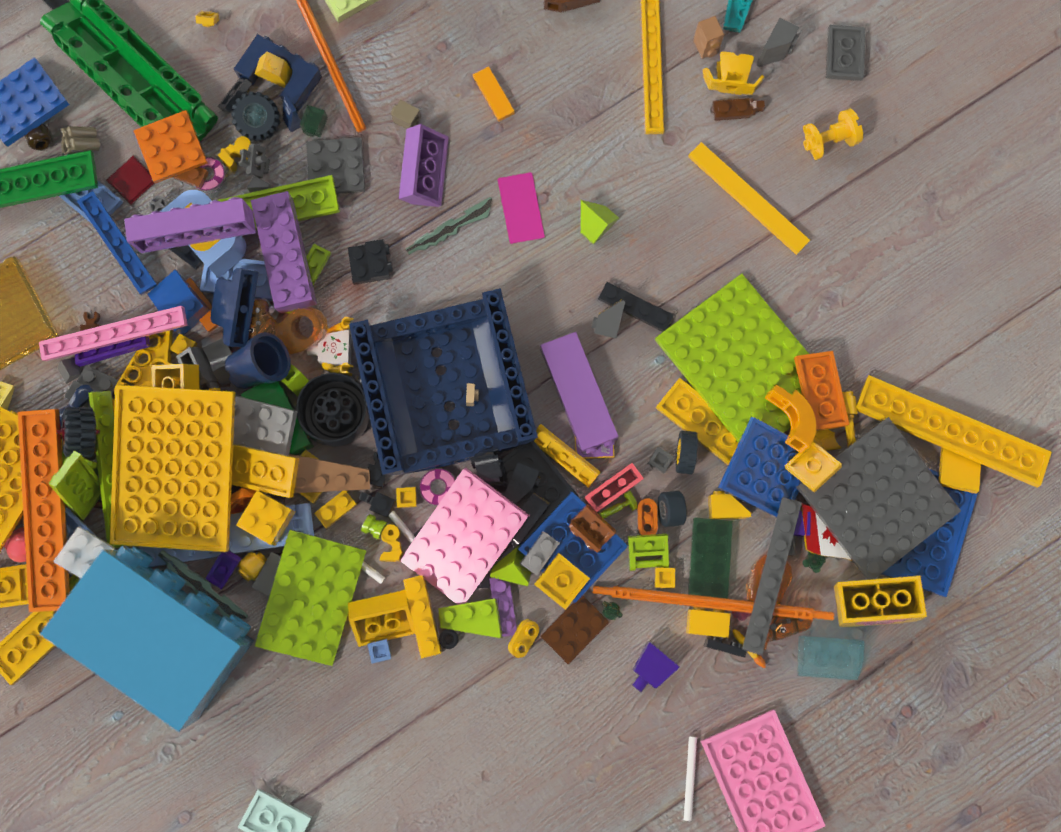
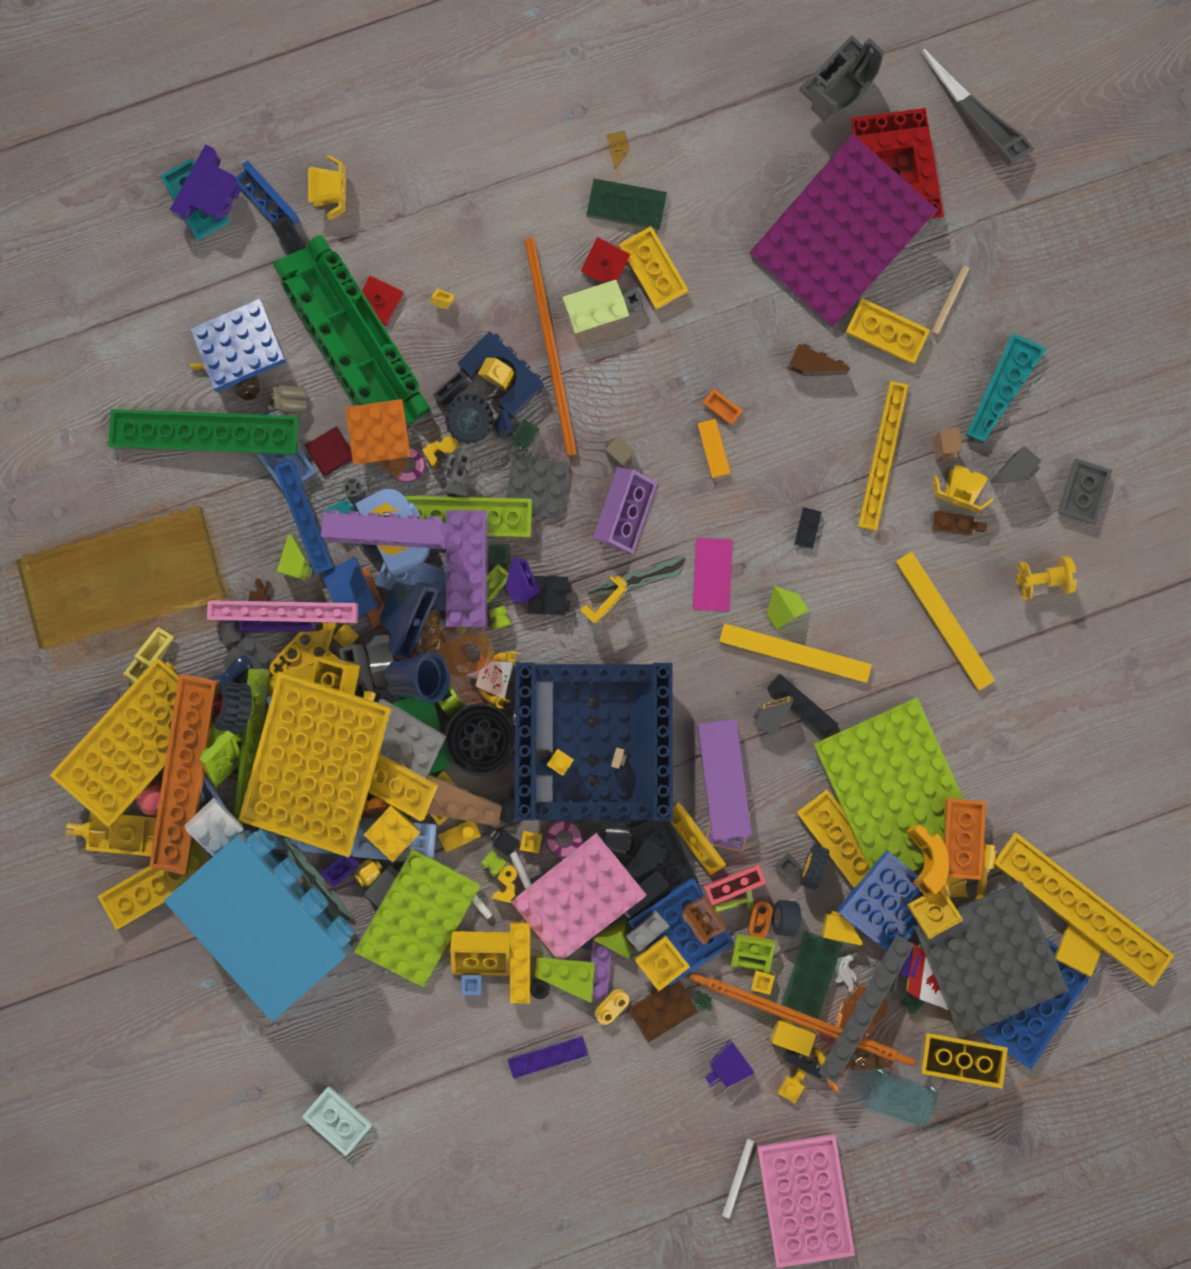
camera: 15 degrees right, 5 degrees up
(115, 286) = (294, 561): none -> lime slope
(152, 31) = (382, 298): none -> red plate
(314, 235) = (500, 554): none -> clear green plate
(326, 292) = (499, 618): none -> lime wheel
(339, 254) = (521, 582): none -> dark purple slope
(415, 411) = (560, 762): none -> yellow brick
(427, 252) = (596, 616): none -> yellow panel
(472, 704) = (547, 1056): none -> dark purple plate
(492, 55) = (722, 406): none -> orange tile
(599, 144) = (807, 528): none -> black plate
(616, 260) = (795, 653): none -> yellow tile
(719, 673) = (791, 1086): none -> yellow plate
(742, 549) = (844, 972): none -> white piece

